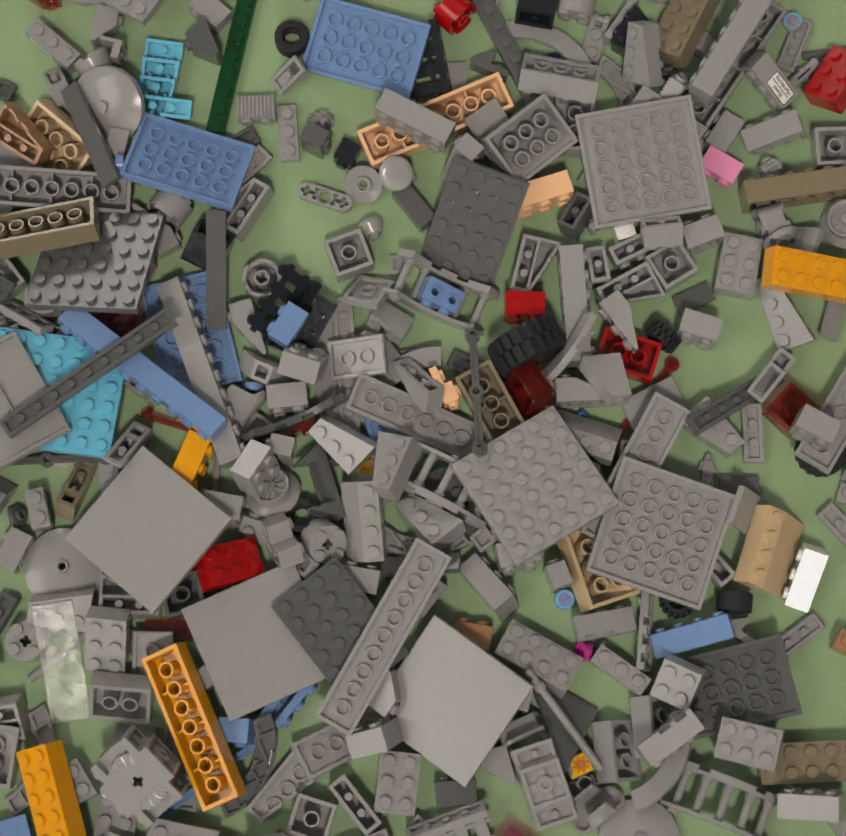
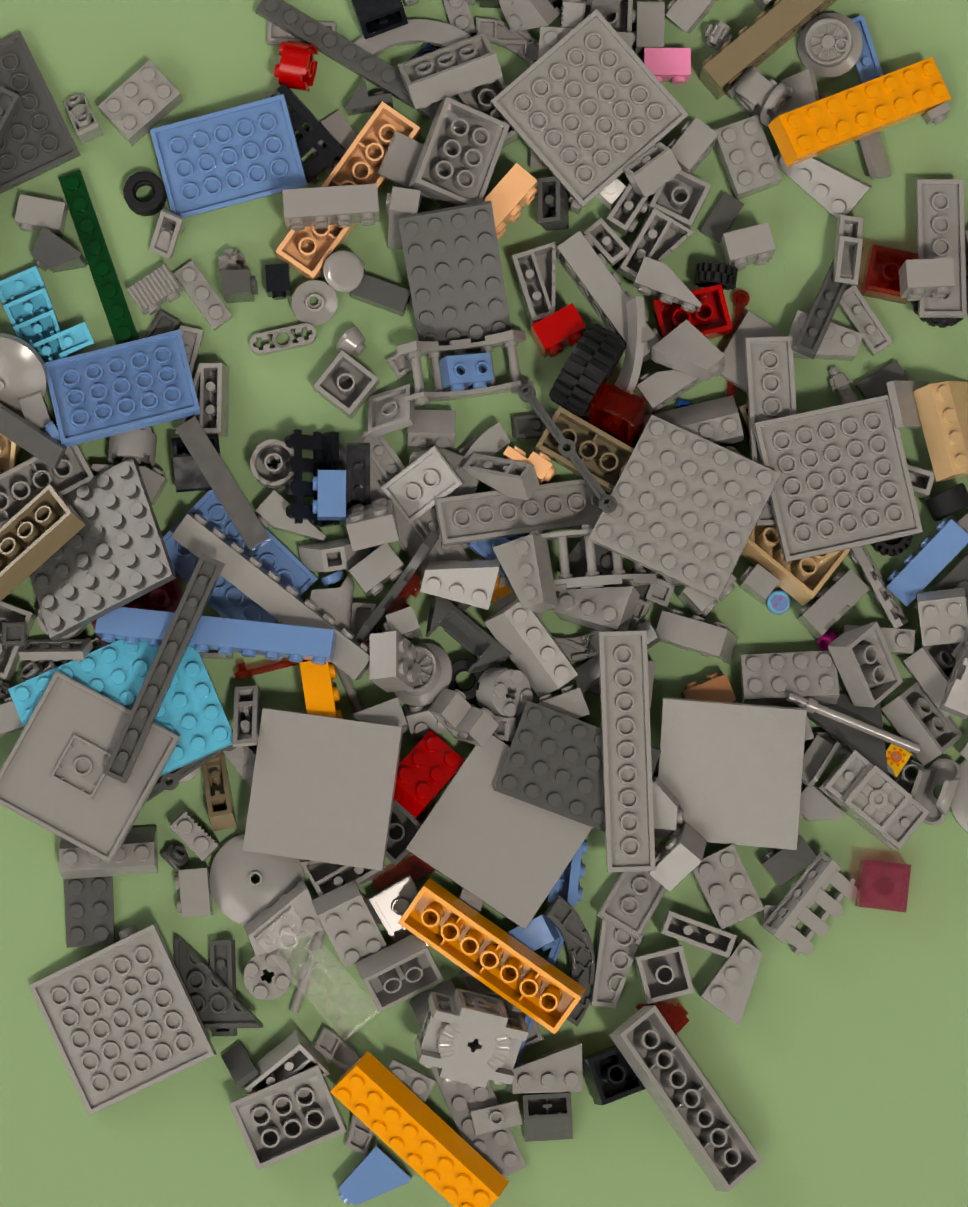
camera: 30 degrees left, 5 degrees up
(599, 682) = (865, 665): none -> light grey slope

